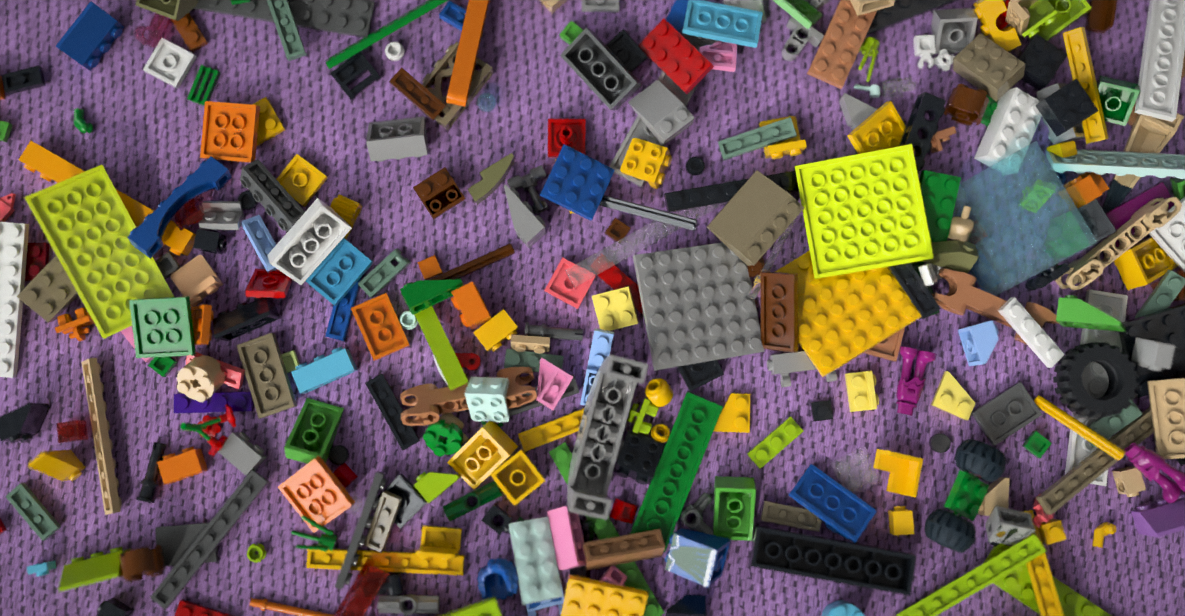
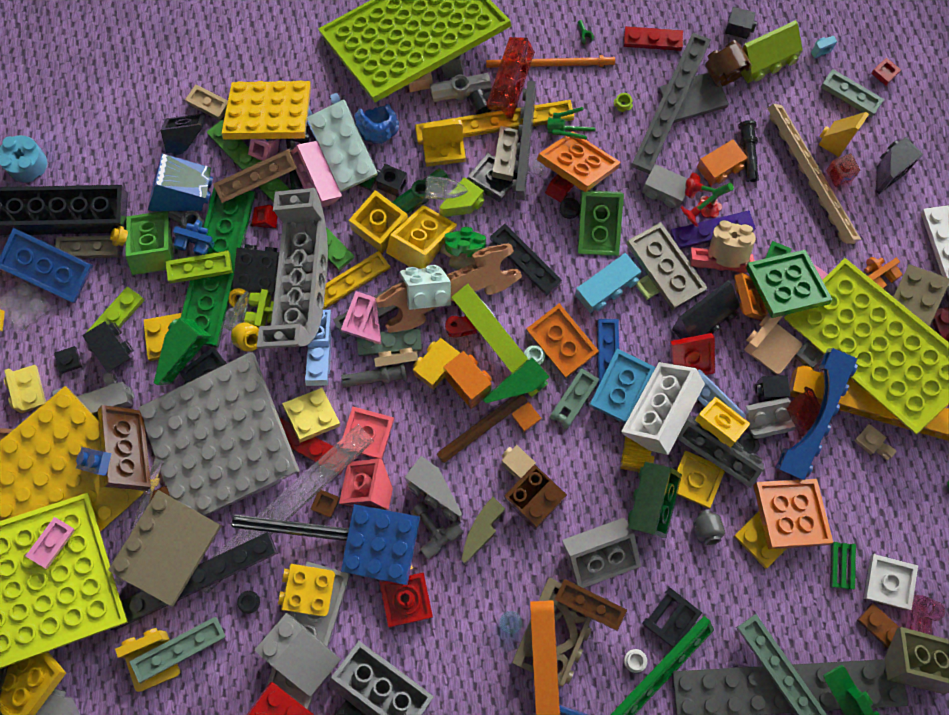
camera: 170 degrees right, 10 degrees down
(141, 179) = (872, 440): none -> tan plate
(262, 216) = (722, 422): none -> yellow plate
(303, 138) = (708, 527): none -> dark grey head
(341, 165) = (654, 499): none -> dark green brick
(447, 227) = (517, 462): none -> tan brick
(450, 493) = (443, 188): none -> clear plate
(579, 236) = (366, 485): none -> coral slope
(666, 415) = (236, 314): none -> clear plate
(691, 468) = (199, 267): none -> lime plate
(700, 499) = (201, 241): none -> blue hips
(712, 395) = (179, 348): none -> green slope
(760, 515) = (118, 236): none -> yellow plate
(781, 407) = (109, 345): none -> black brick
(805, 300) = (93, 461): none -> blue plate
(848, 237) = (50, 543): none -> bright pink plate

